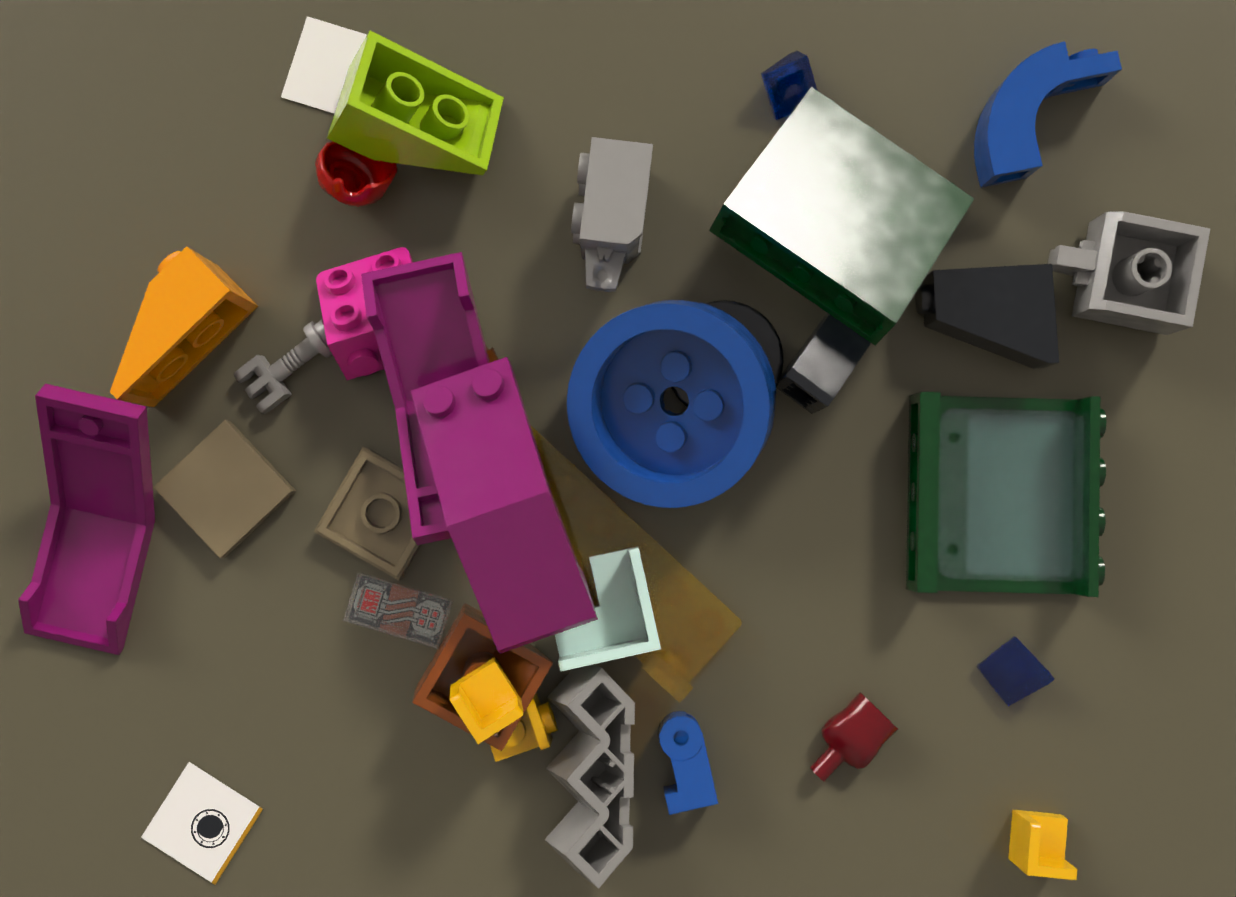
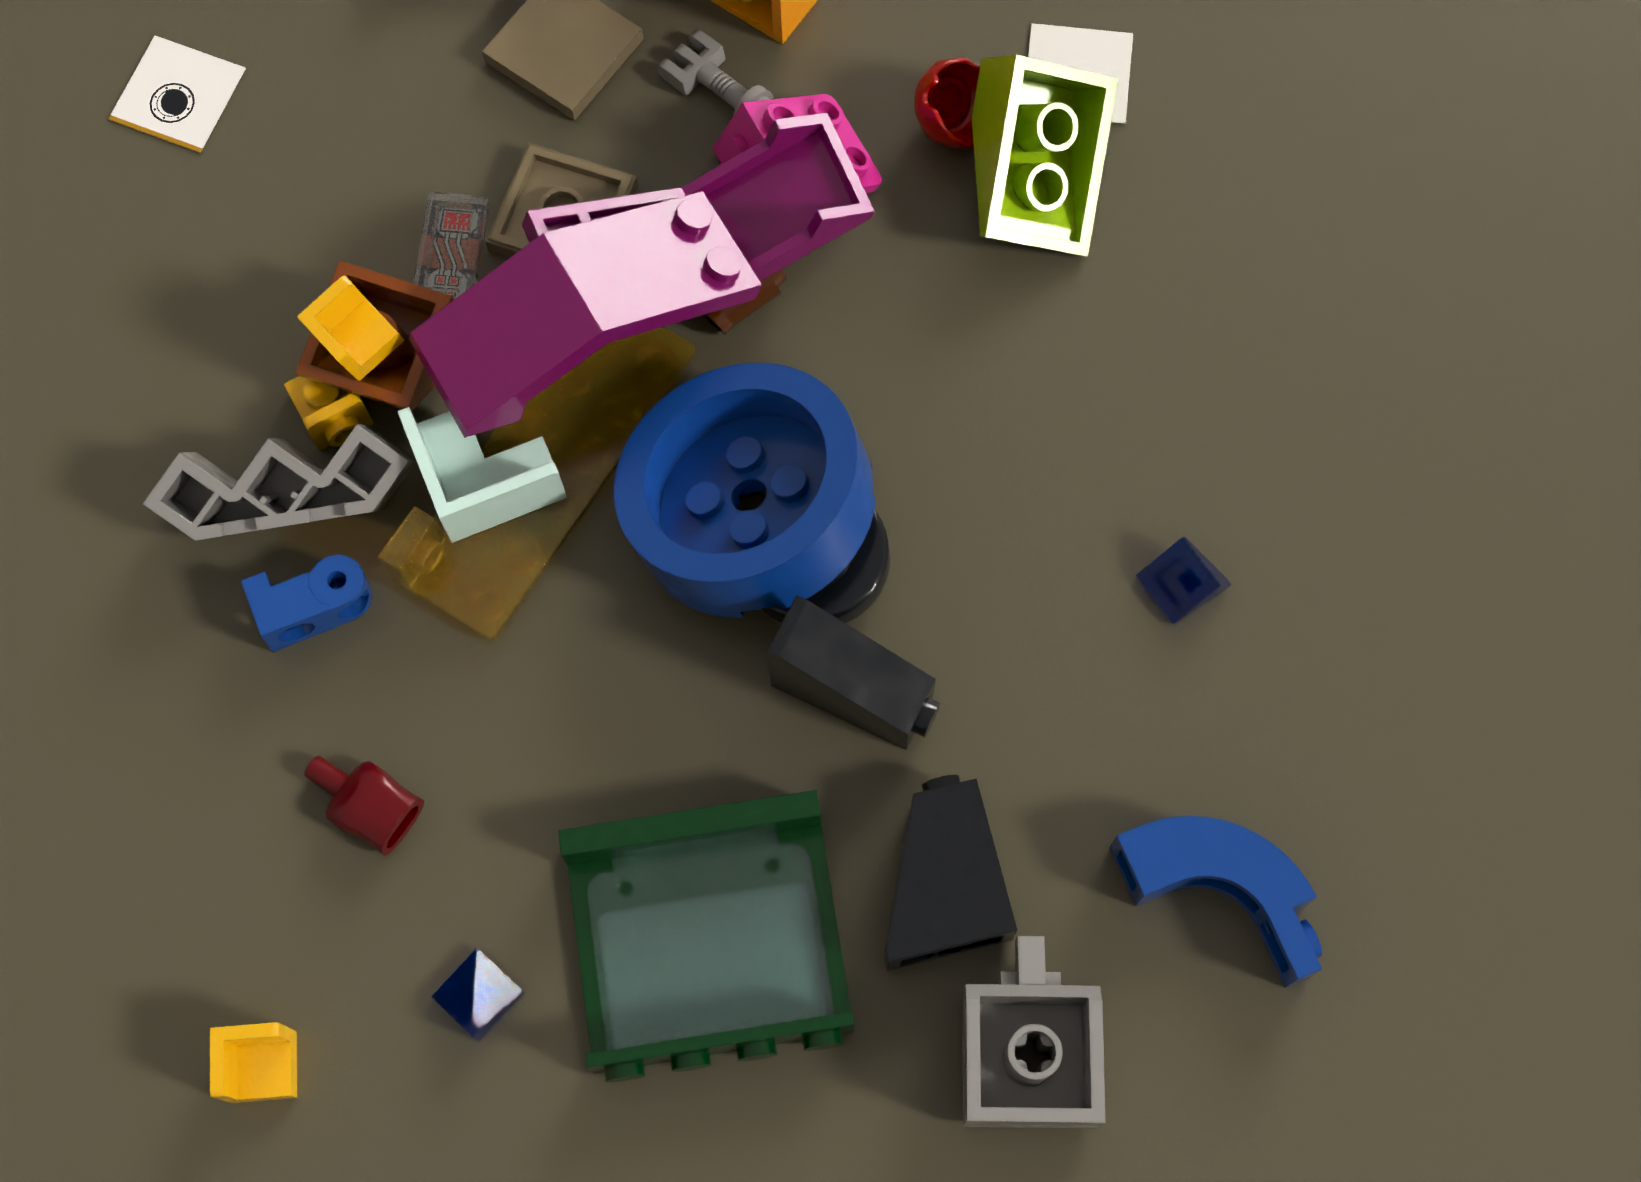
camera: 85 degrees right, 15 degrees down
(613, 210) = (969, 384): light grey hinge -> none
(842, 216) = (1024, 647): panel -> none

